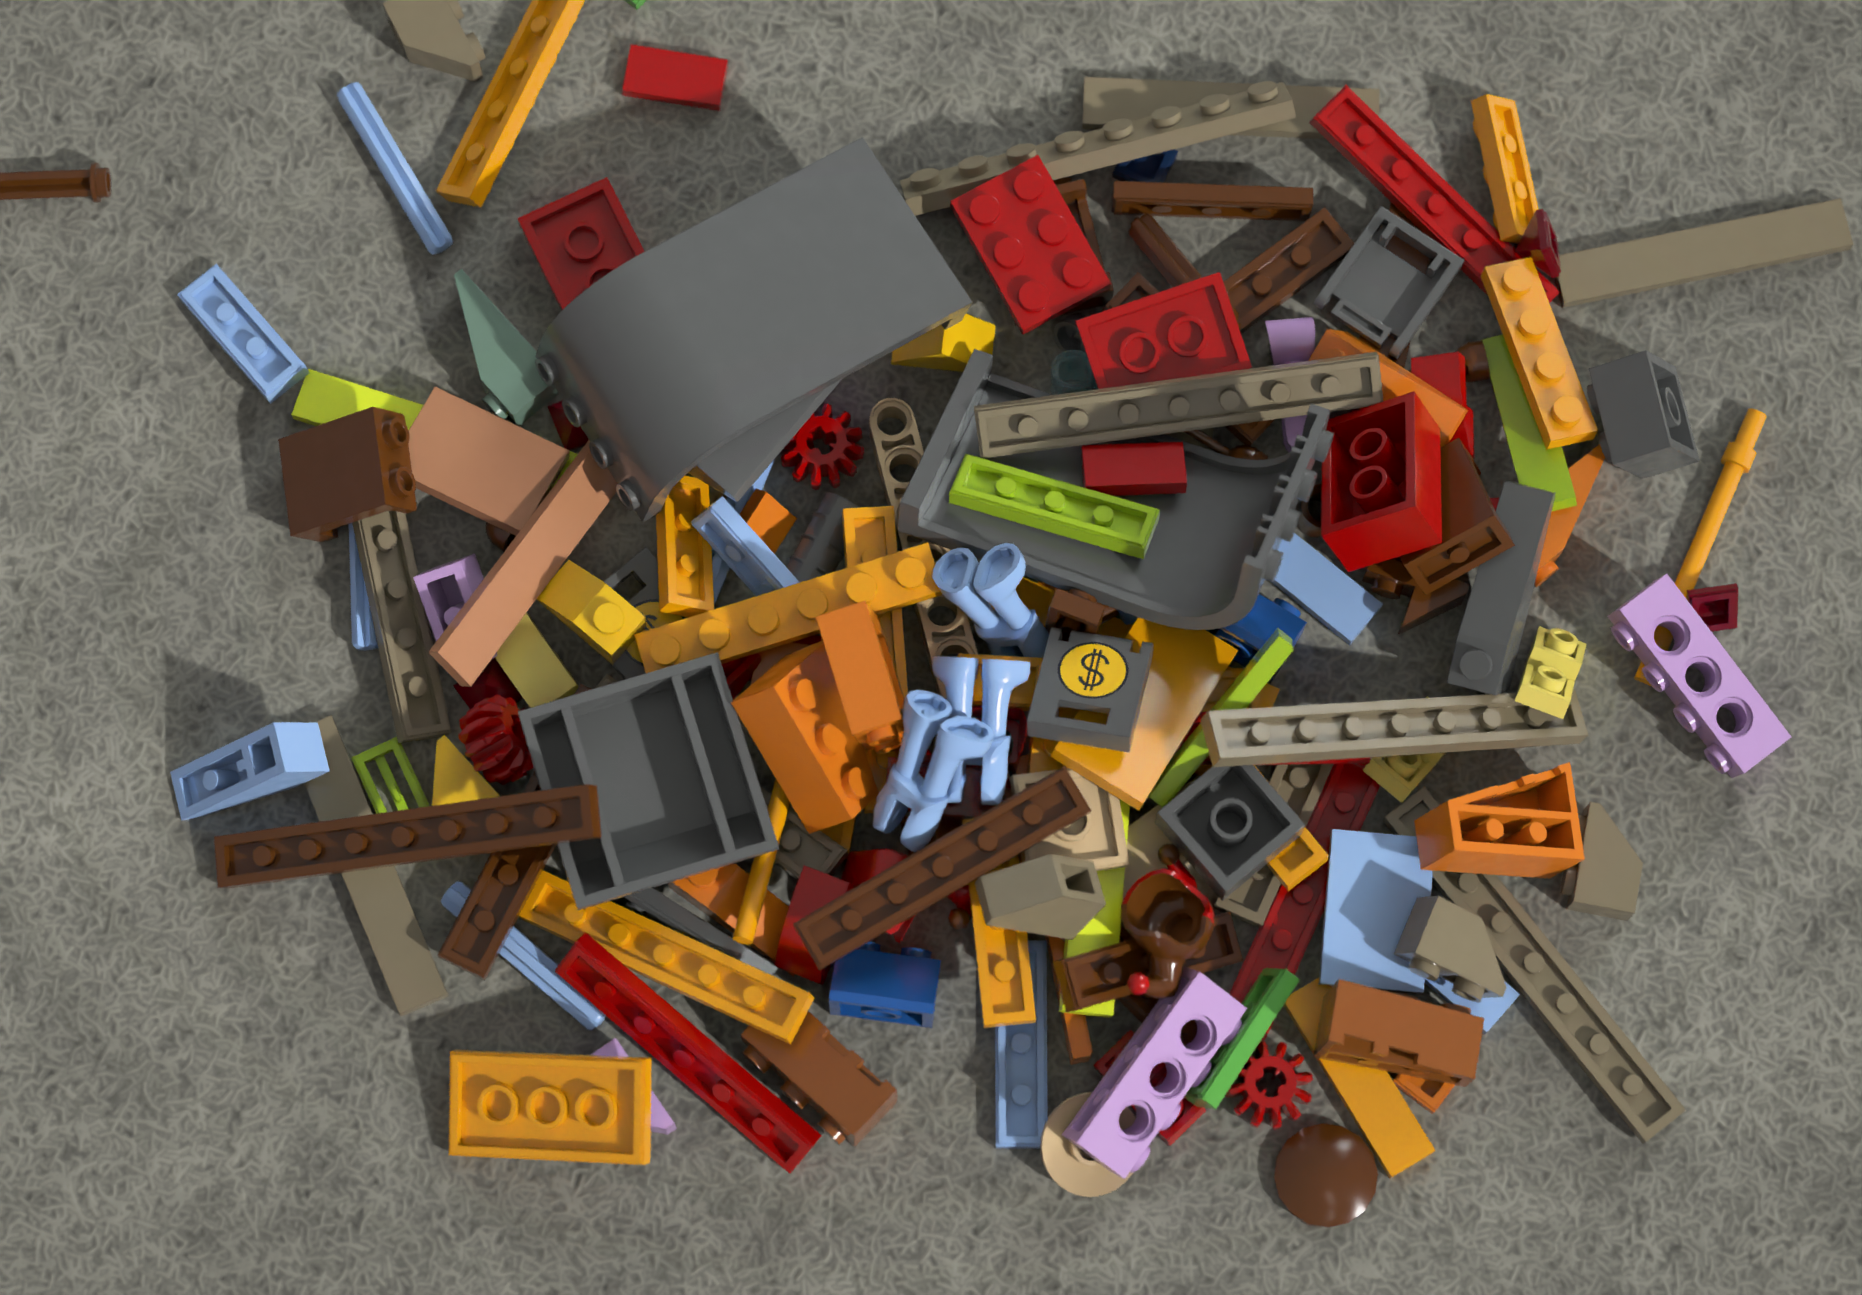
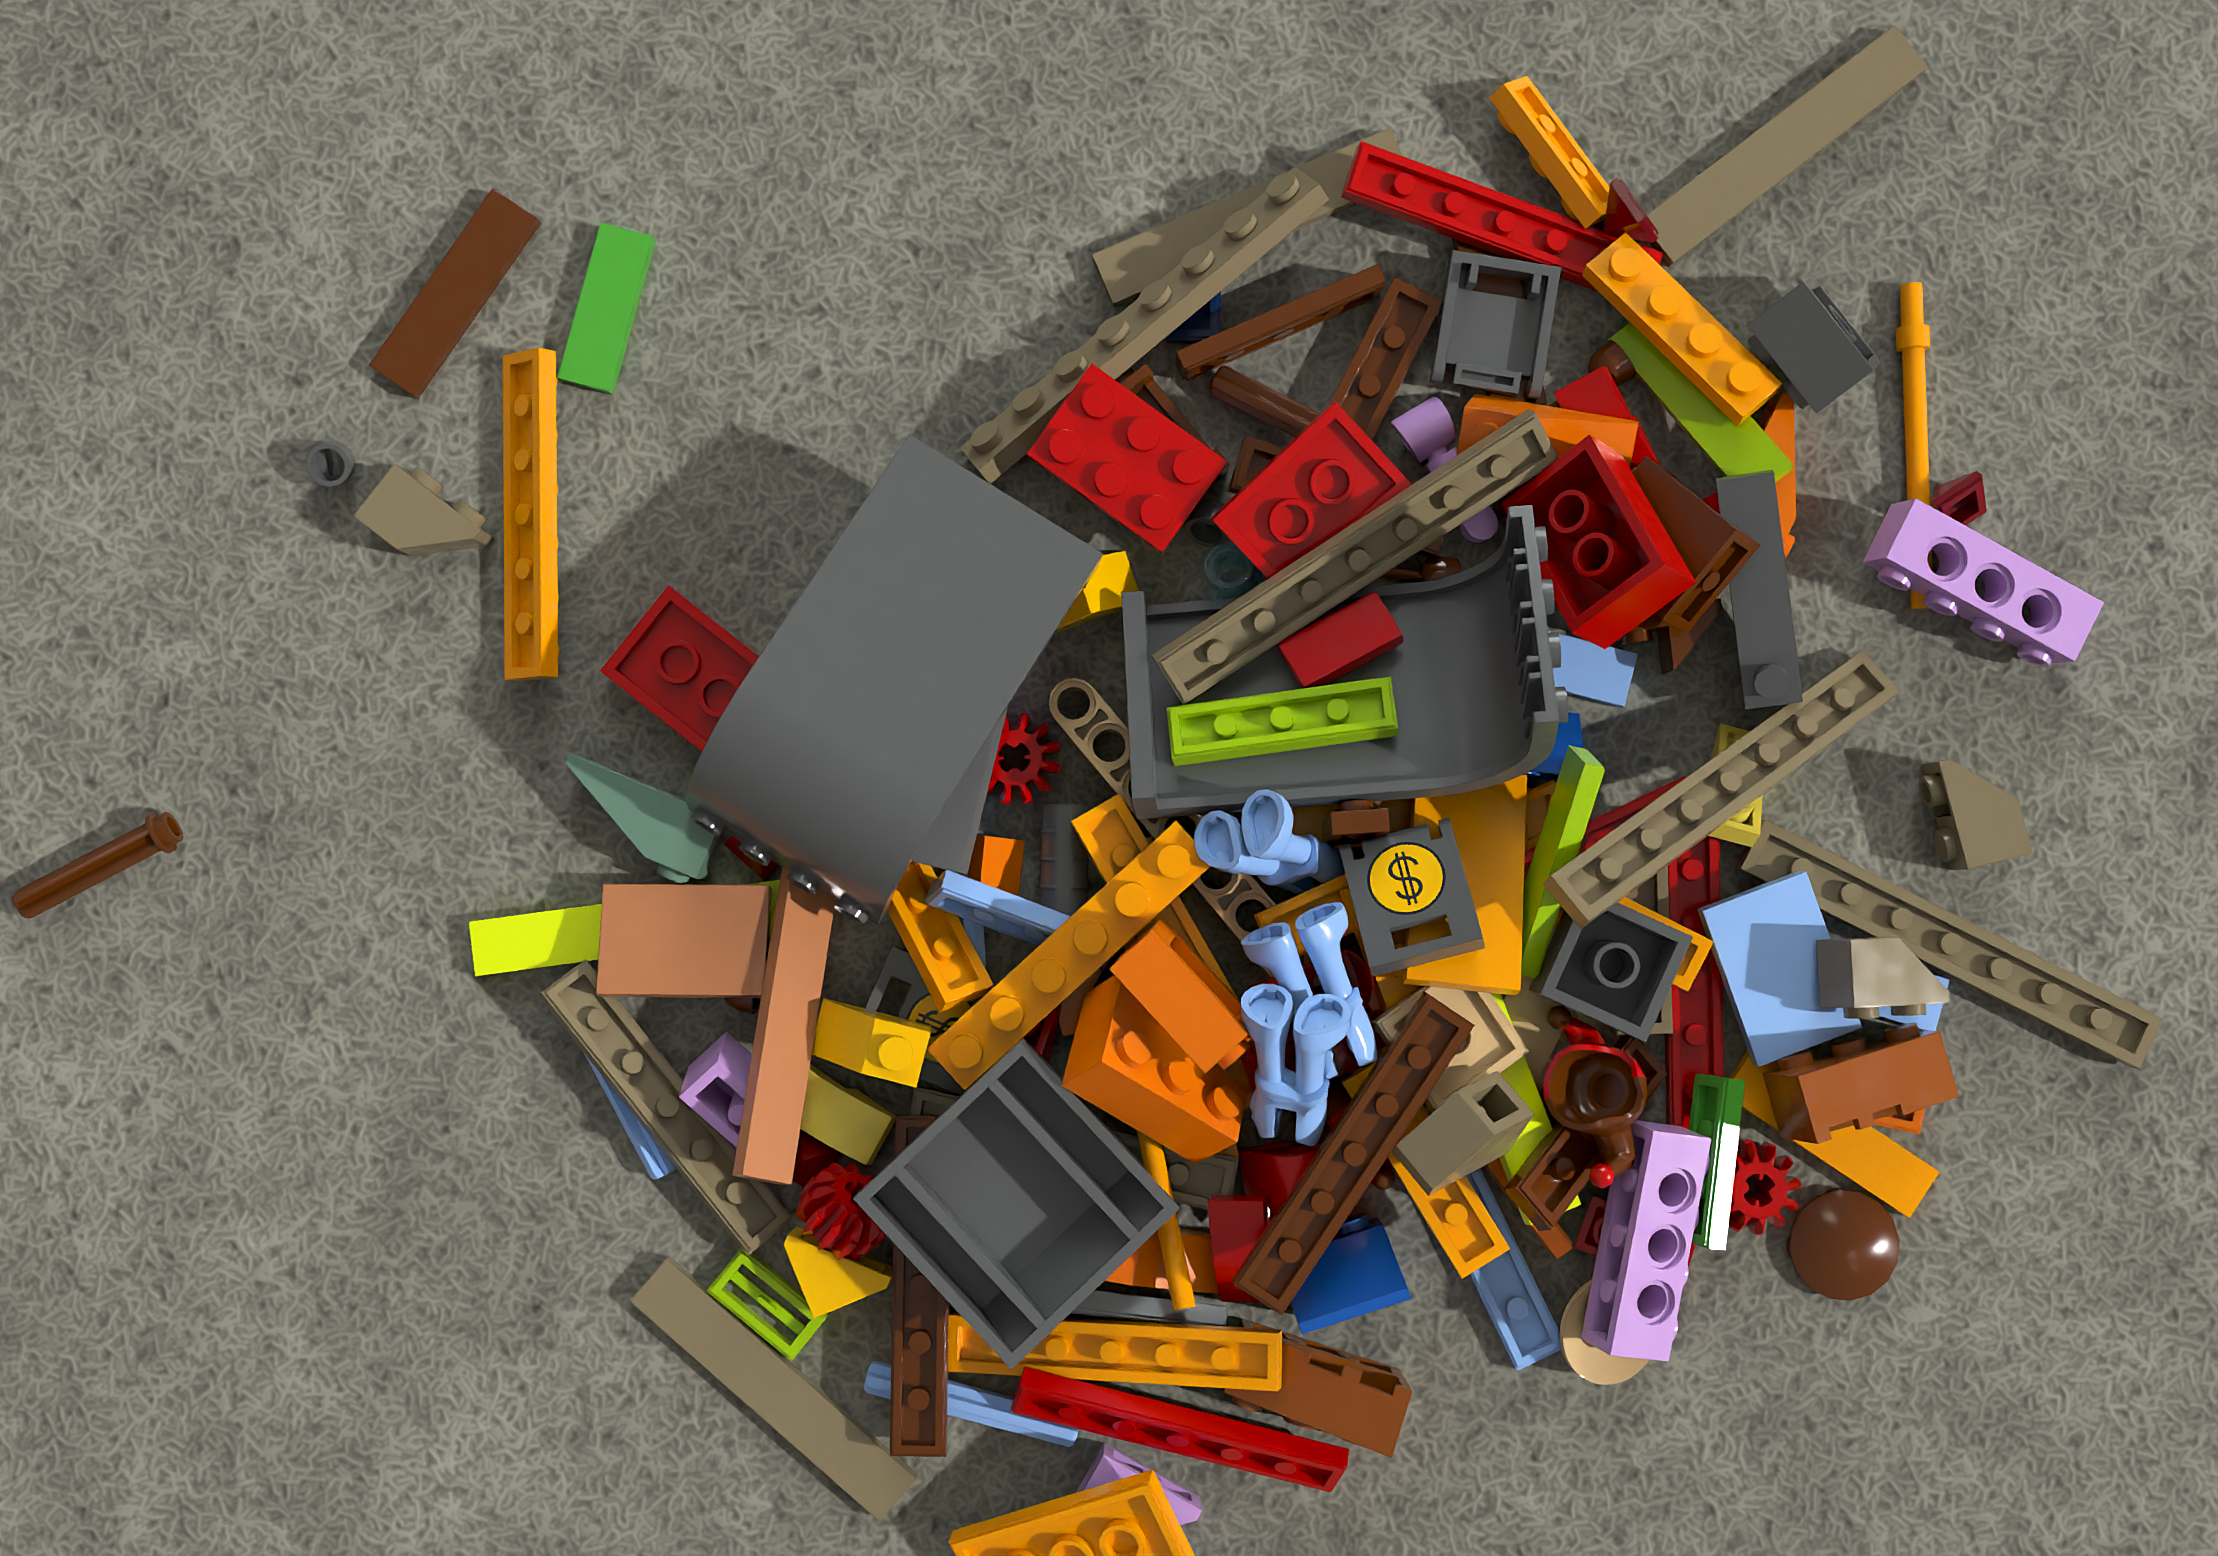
camera: 20 degrees left, 10 degrees up
(243, 333) = (386, 917): light blue tile -> none
(250, 768) = (615, 1357): light blue slope -> none
(346, 472) = (560, 1018): reddish brown panel -> none
(394, 168) = (452, 674): light blue axle -> none
(408, 836) = (808, 1365): reddish brown plate -> none
(675, 77) = (685, 447): red tile -> none
(1506, 829) = (1872, 826): orange wedge -> none
(1551, 671) = (1834, 646): light yellow slope -> none

